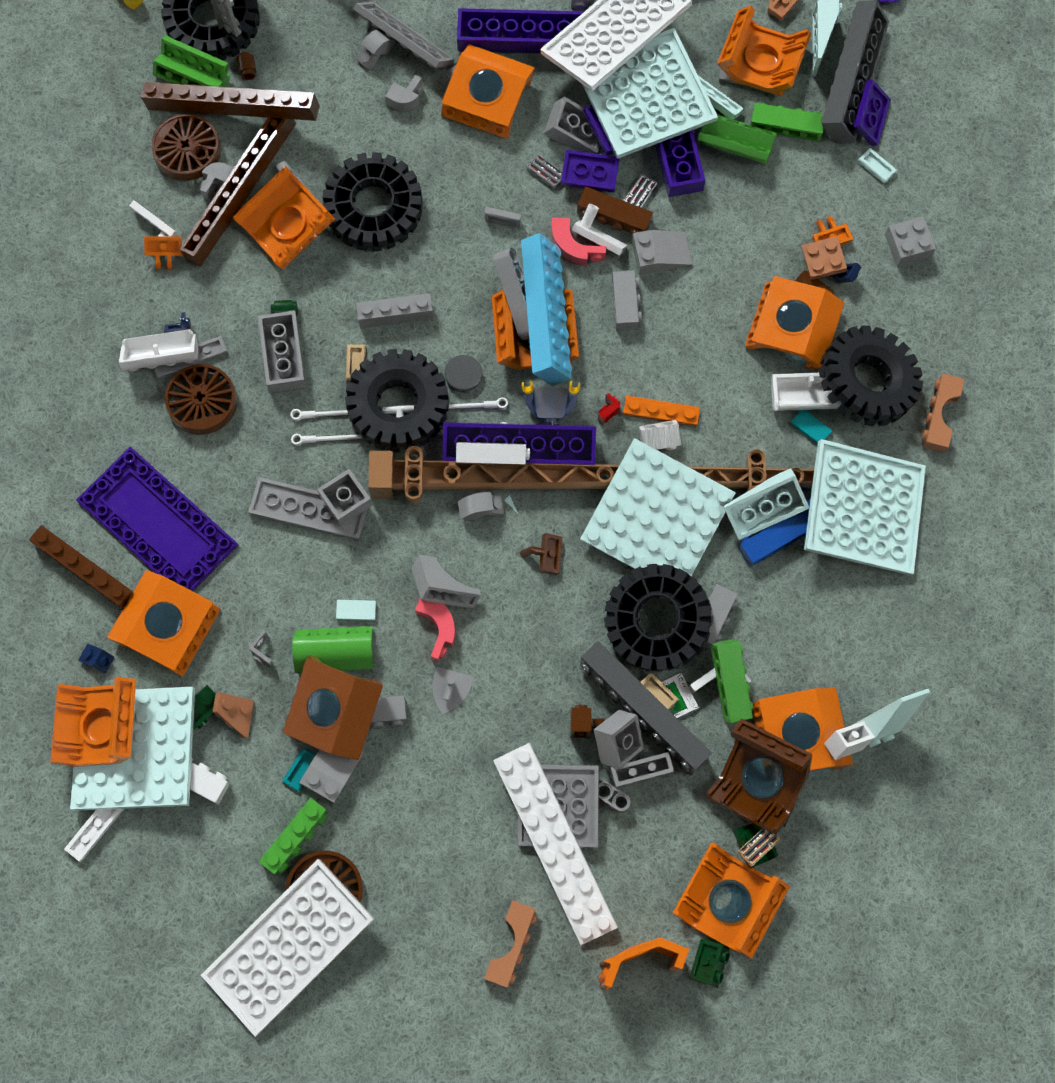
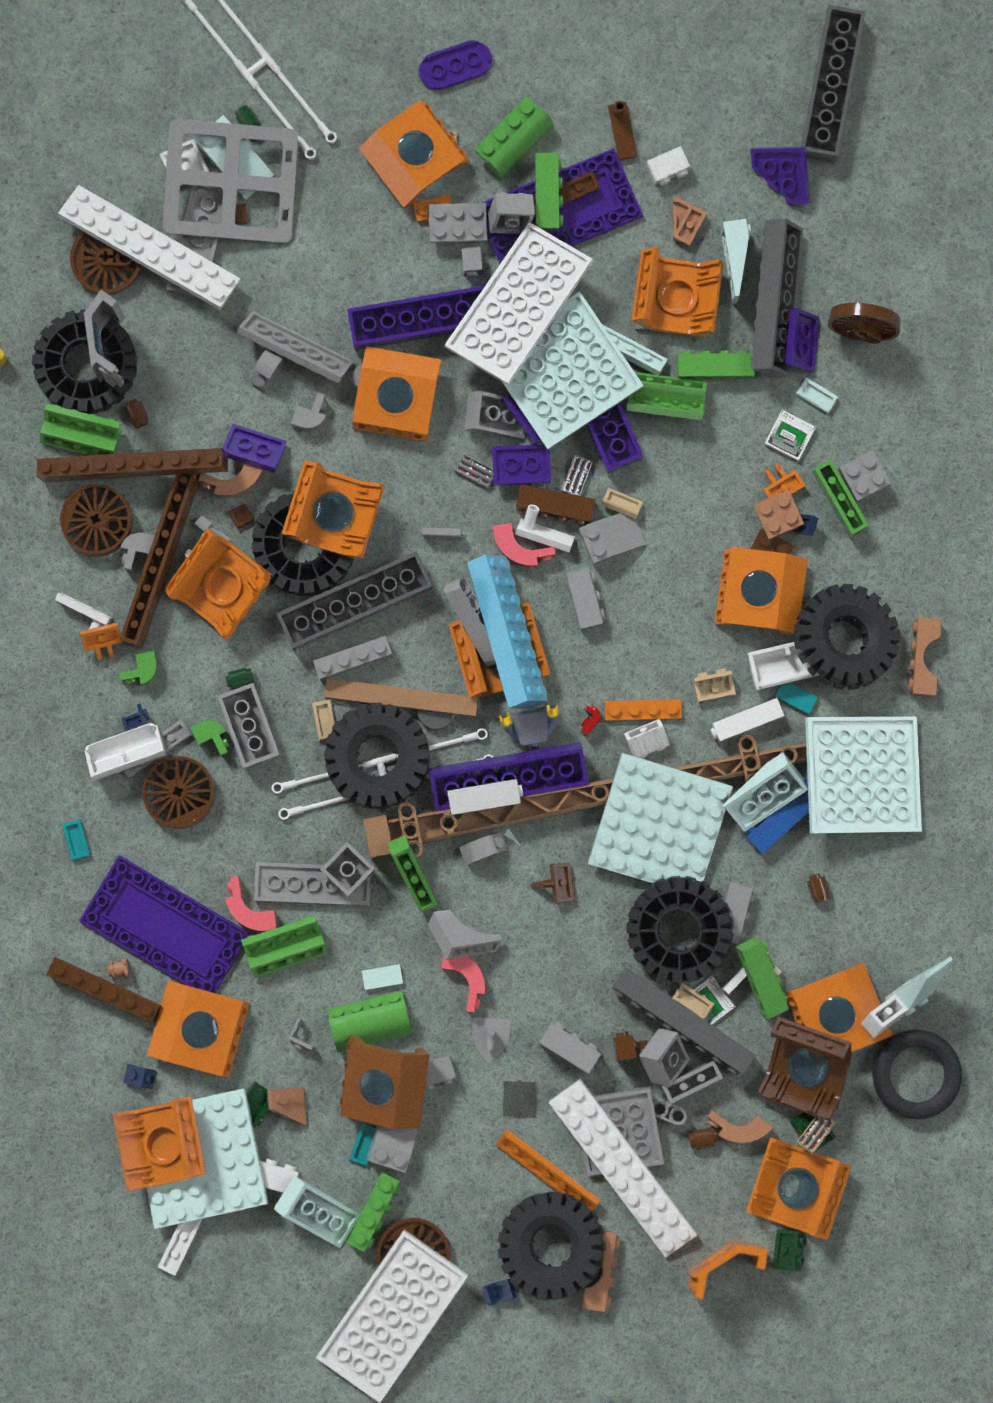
camera: 10 degrees left, 10 degrees up
(93, 425) = (76, 840): none -> teal tile
(102, 551) = (118, 969): none -> nougat brick
(197, 286) = (146, 671): none -> bright green brick
(236, 824) = (316, 1212): none -> light aqua slope
(245, 350) = (211, 730): none -> bright green brick
(245, 531) = (254, 920): none -> coral arch
(266, 559) = (284, 946): none -> bright green brick
(320, 170) = (241, 516): none -> reddish brown tile
(322, 142) = (234, 487): none -> nougat arch
(346, 112) = (254, 448): none -> dark purple plate
(403, 171) = (332, 511): none -> orange panel
(403, 945) = (498, 1291): none -> dark blue bracket
(406, 511) = (412, 873): none -> bright green brick
(408, 259) = (354, 601): none -> dark grey brick
(434, 894) = (518, 1240): none -> black tyre
(438, 355) = (401, 697): none -> medium nougat tile
(465, 755) = (519, 1098): none -> clear smoke piece
(478, 833) = (545, 1169): none -> orange plate
(526, 711) = (570, 1047): none -> light grey brick
(642, 830) = (703, 1138): none -> reddish brown brick
(677, 223) = (622, 503): none -> tan tile
(680, 833) = (741, 1134): none -> nougat arch
(734, 399) = (714, 685): none -> tan bracket
(760, 438) = (747, 720): none -> white brick
(802, 608) = (818, 888): none -> reddish brown brick
(845, 195) = (790, 435): none -> tile
(884, 255) = (840, 498): none -> bright green brick
(896, 785) = (950, 1063): none -> black tyre
(940, 108) = (864, 322): none -> reddish brown piece

